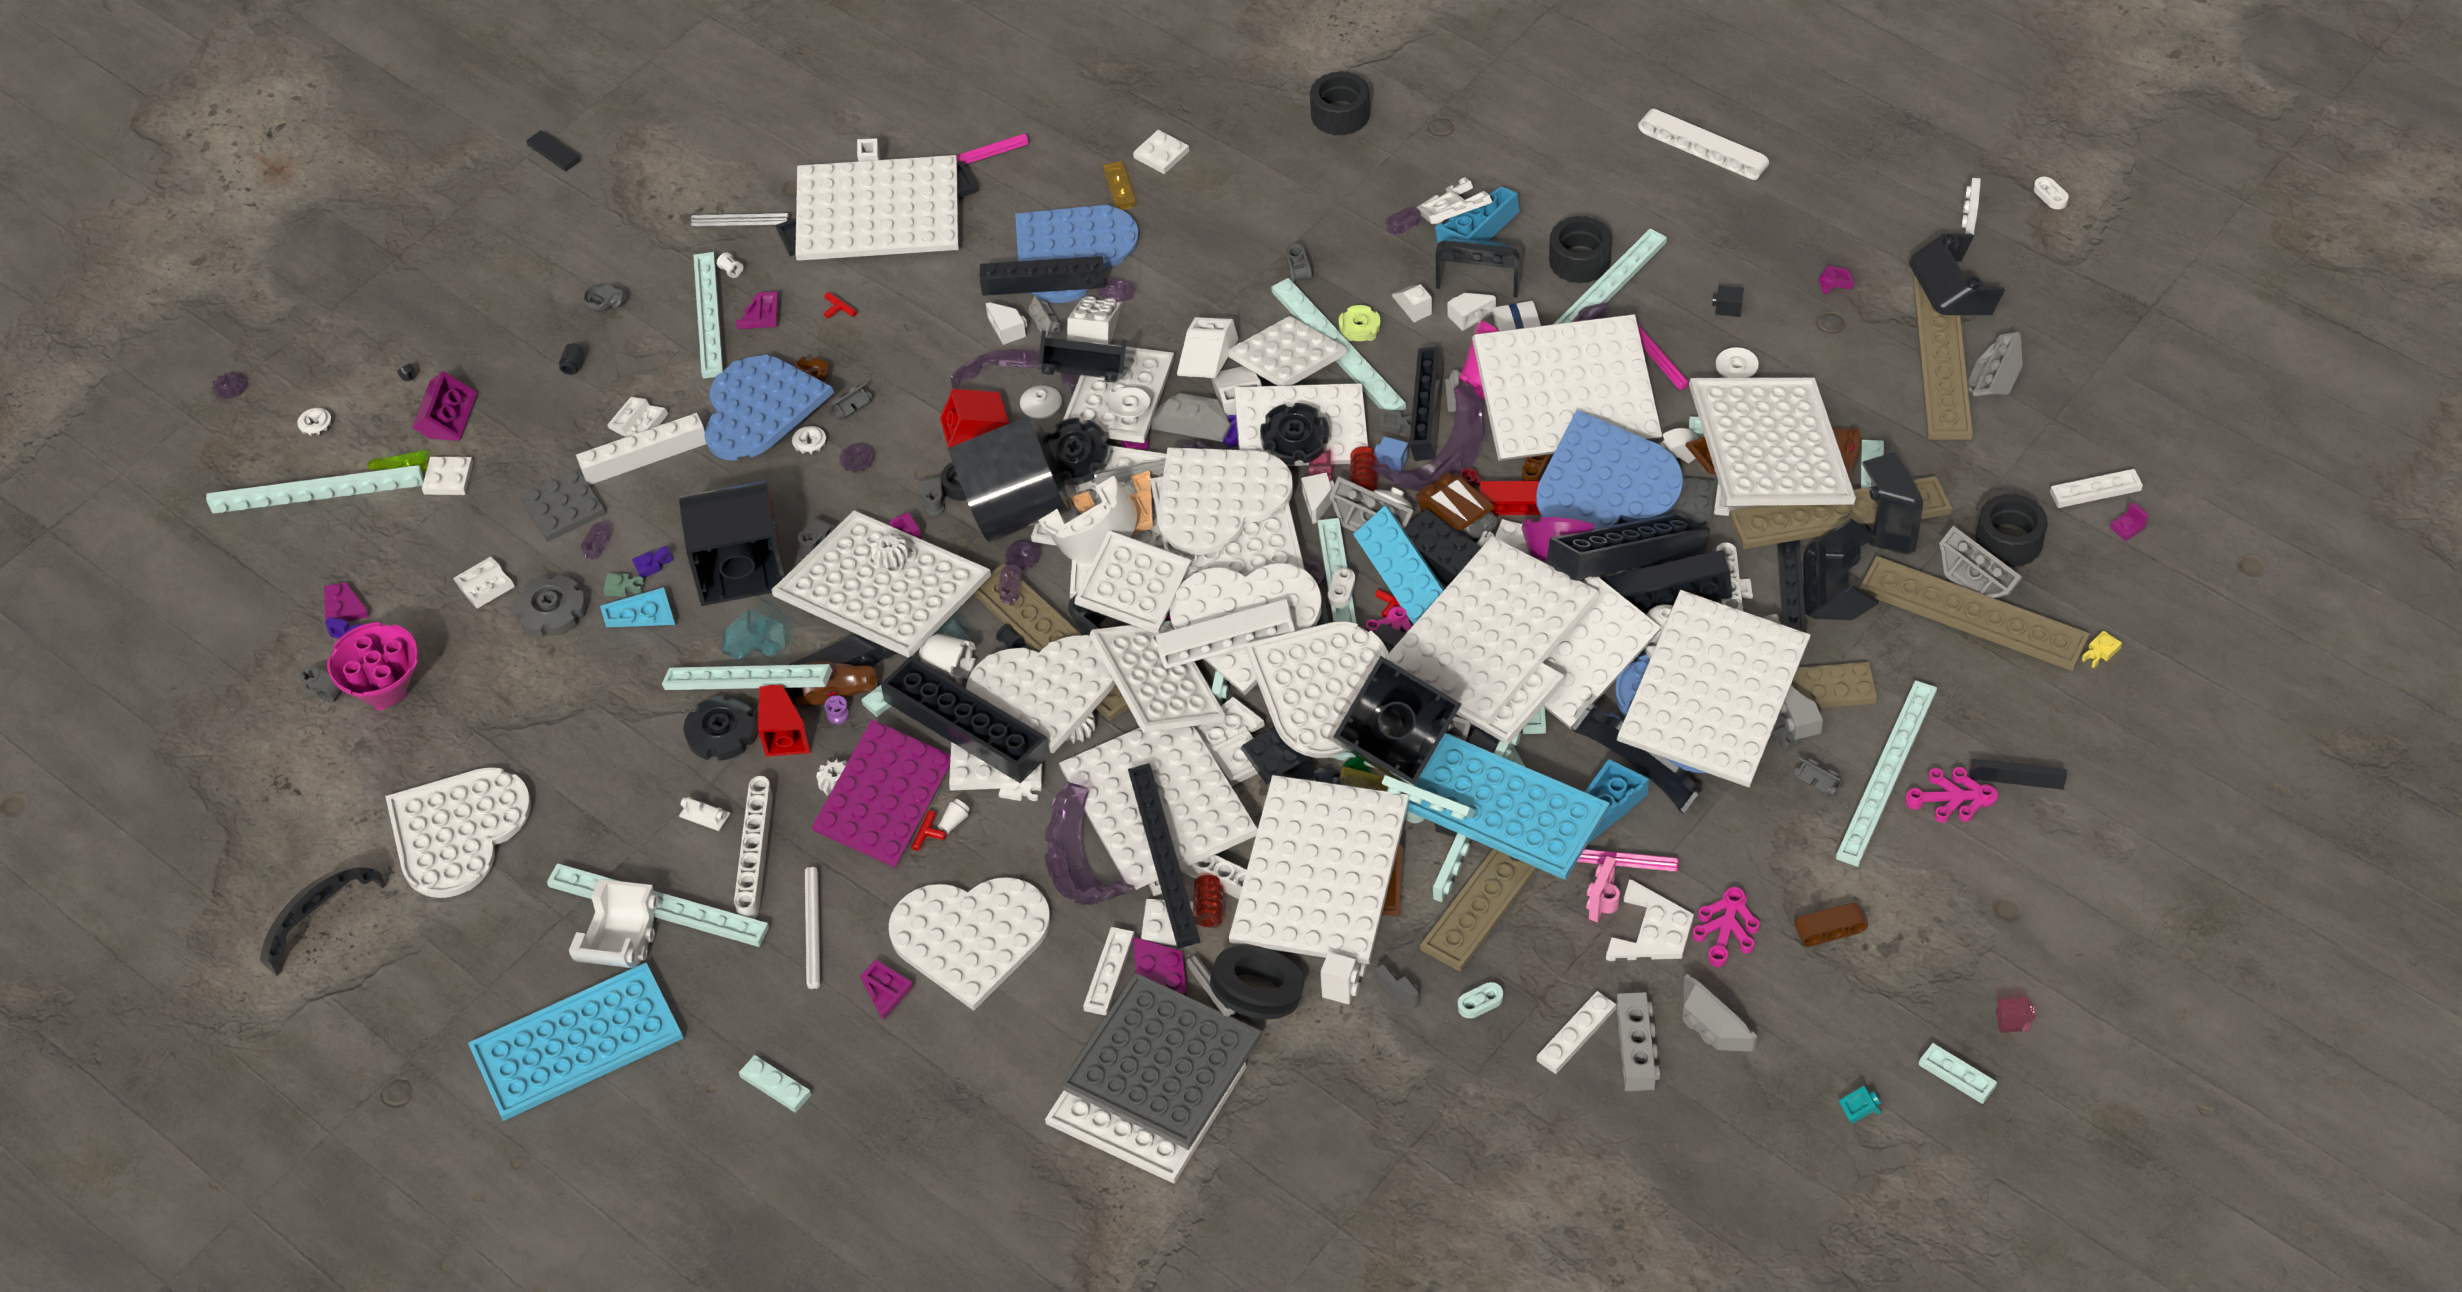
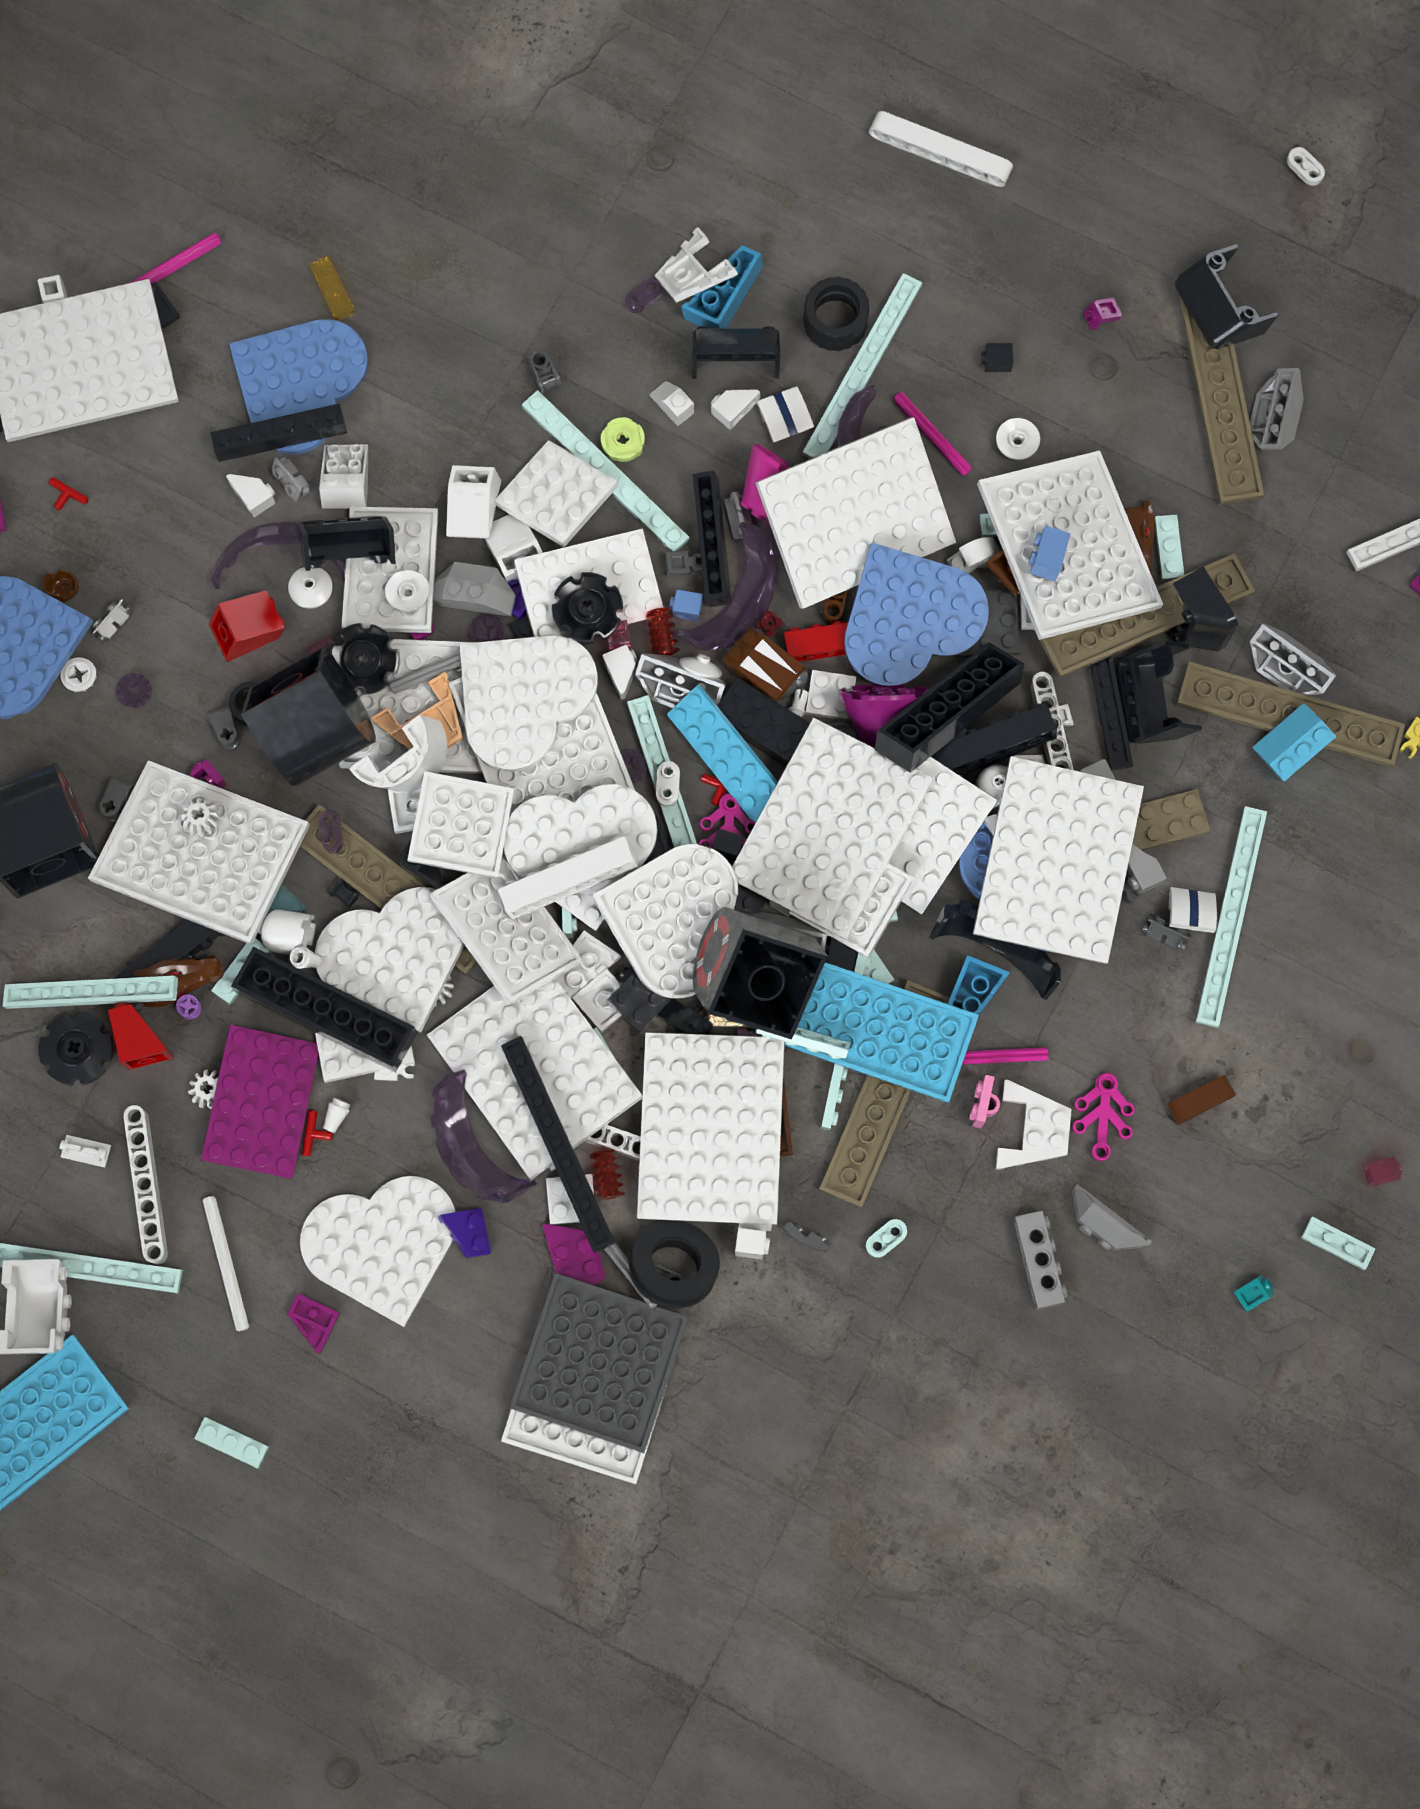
camera: 15 degrees left, 25 degrees up
(751, 633) = (82, 936): clear light blue brick -> none
(956, 671) = (304, 958): none -> white cone
(1026, 548) = (335, 776): clear purple gear -> none
(1058, 931) = (468, 1231): none -> dark purple wing
(1108, 971) = (526, 1265): white plate -> none
(1116, 290) = (360, 433): clear purple beam -> none
(1161, 151) = (367, 235): white plate -> none
(1343, 118) = (544, 125): black tyre -> none
(1576, 1032) = (981, 1256): white plate -> none
(1747, 434) = (1049, 553): none -> medium blue brick
(1847, 760) = (1192, 910): none -> white slope
(1954, 795) = (1299, 932): dark pink plant -> none
(1971, 206) = (1231, 205): white plate -> none
(1973, 632) = (1294, 742): none -> medium azure slope
(2016, 511) = (1328, 590): black tyre -> none
(2017, 774) = (1354, 900): black tile -> none

